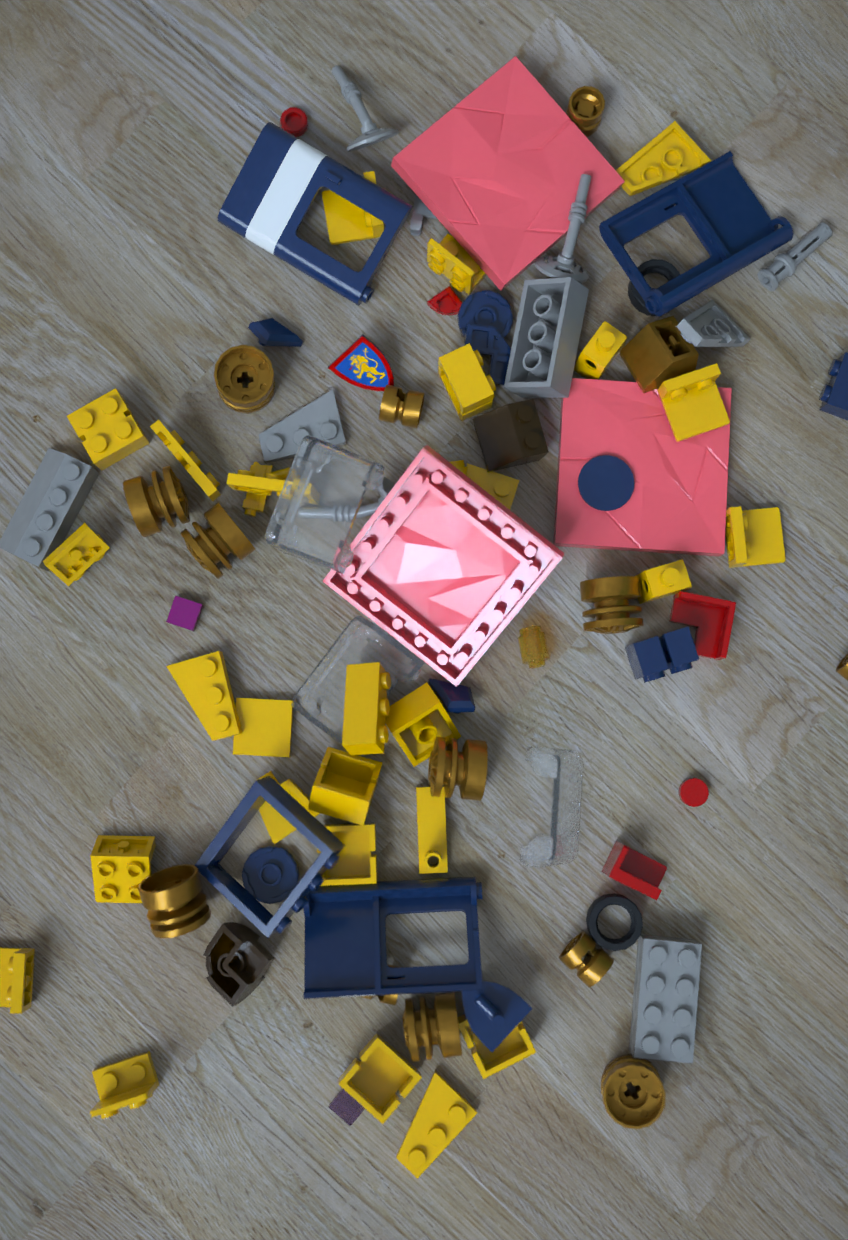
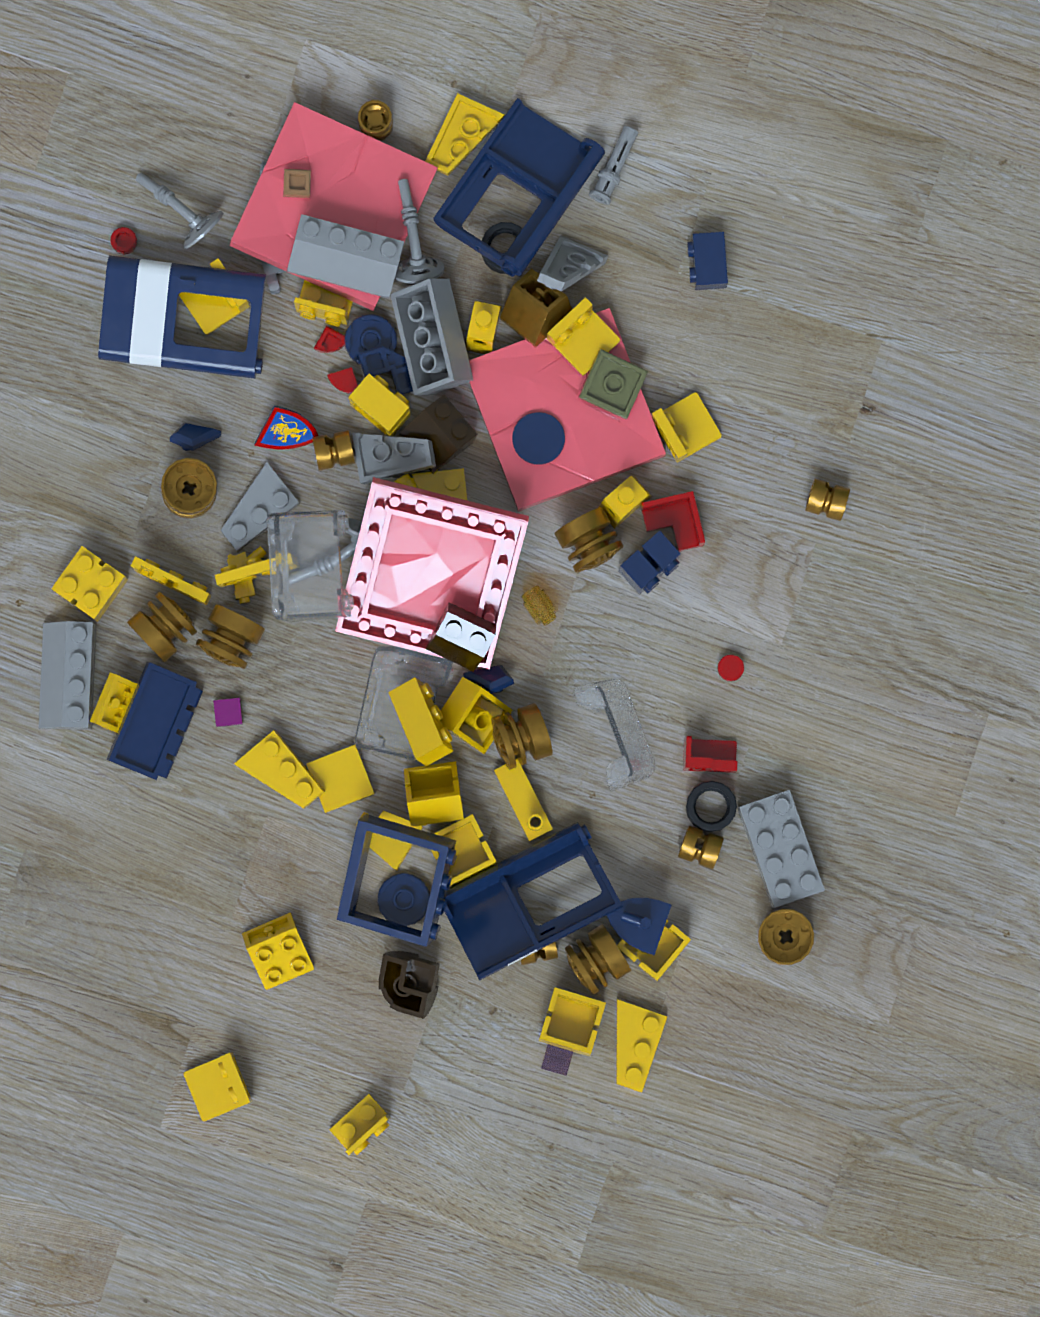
camera: 25 degrees left, 0 degrees up
(106, 589) = (153, 720): none -> dark blue hinge
(174, 901) = (334, 953): pearl gold wheel -> none
(441, 343) = (344, 380): none -> red tile
(444, 644) = (462, 637): none -> dark brown slope
(455, 436) = (391, 456): none -> light grey wing
(482, 131) = (296, 183): none -> medium nougat tile
(497, 220) = (345, 256): none -> light grey slope
(703, 462) = (613, 384): none -> olive tile

